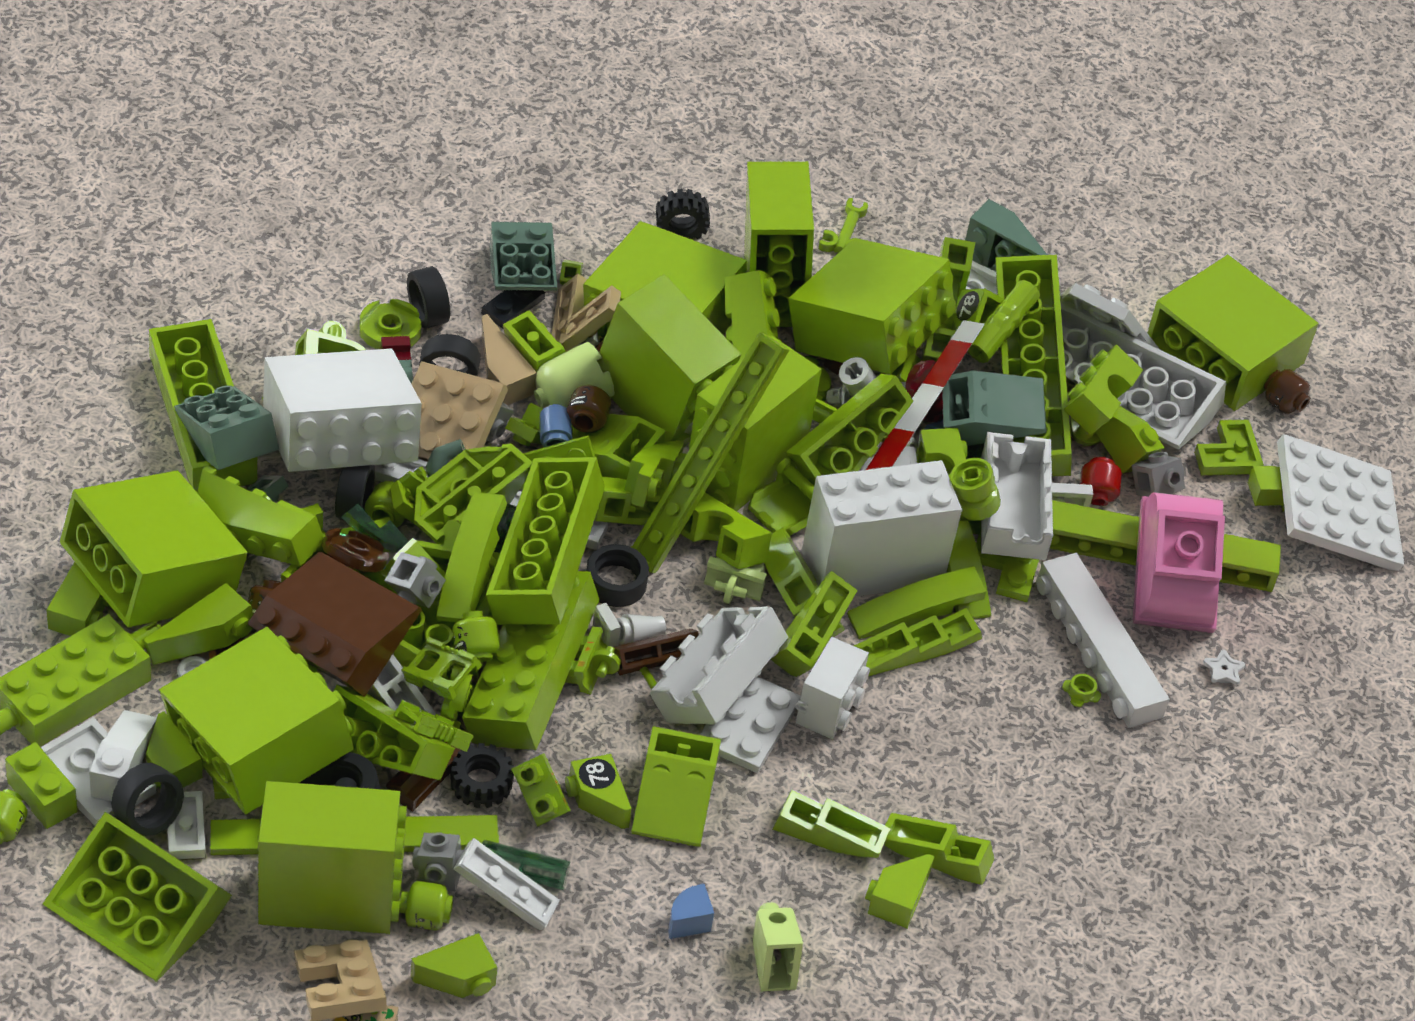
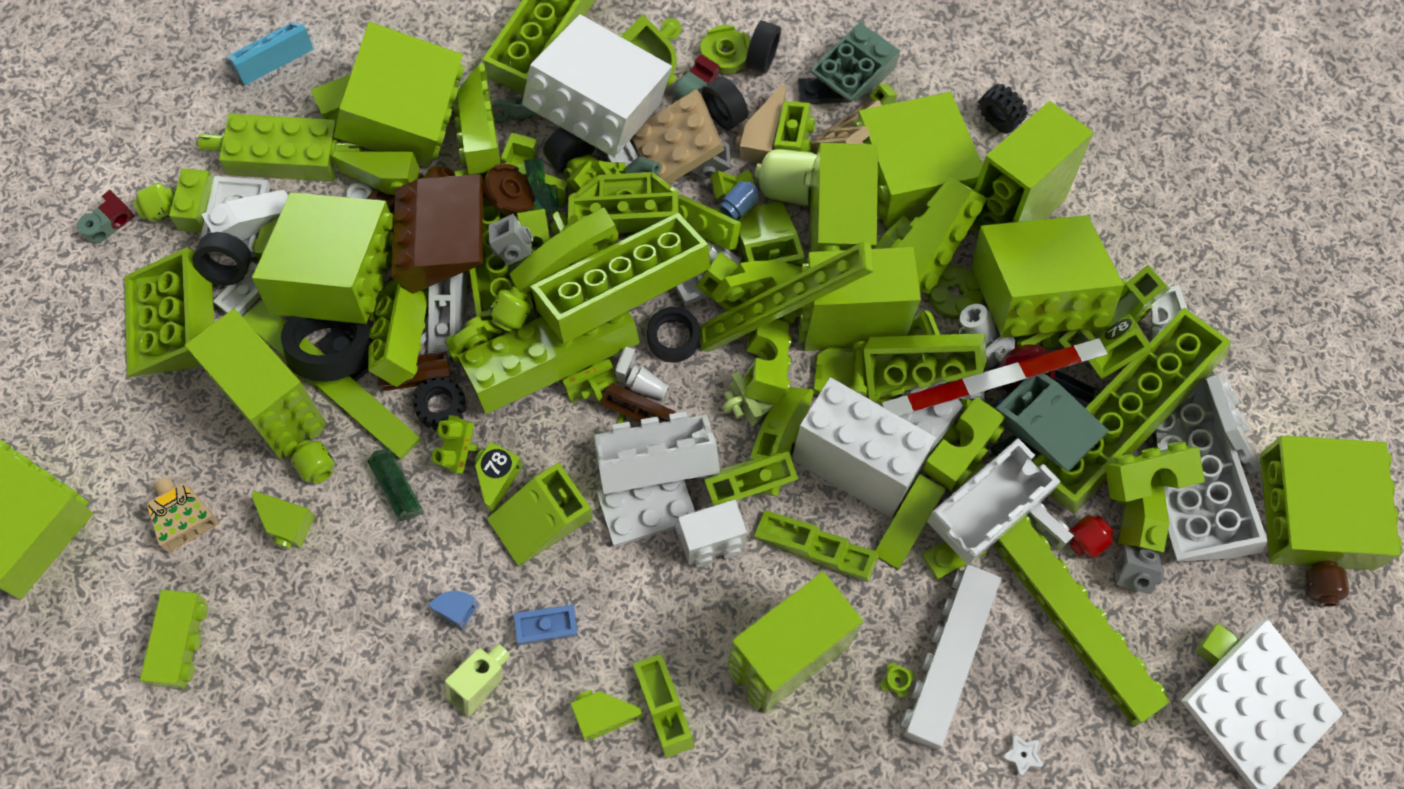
camera: 50 degrees right, 20 degrees up
(228, 426) = (521, 42): sand green slope -> none
(359, 981) = (196, 489): tan plate -> none
(433, 677) = (478, 310): lime piece -> none
(434, 726) = (417, 353): lime piece -> none
(440, 854) = (344, 440): light grey brick -> none
(506, 884) = (364, 490): white tile -> none
(589, 408) = (770, 203): reddish brown head -> none
(777, 867) = (545, 624): none -> medium blue plate
(831, 826) = (610, 629): lime slope -> none
(838, 243) = (1107, 211): lime bar -> none
(917, 602) = (849, 519): lime slope -> none
(975, 488) = (942, 477): lime wheel -> none
(995, 701) = (792, 642): none -> lime brick
(999, 234) = (1216, 293): sand green slope -> none
(1004, 320) = (1131, 361): lime axle -> none
(1179, 562) = (1068, 650): bright pink container -> none
(1234, 454) = (1225, 601): lime plate -> none

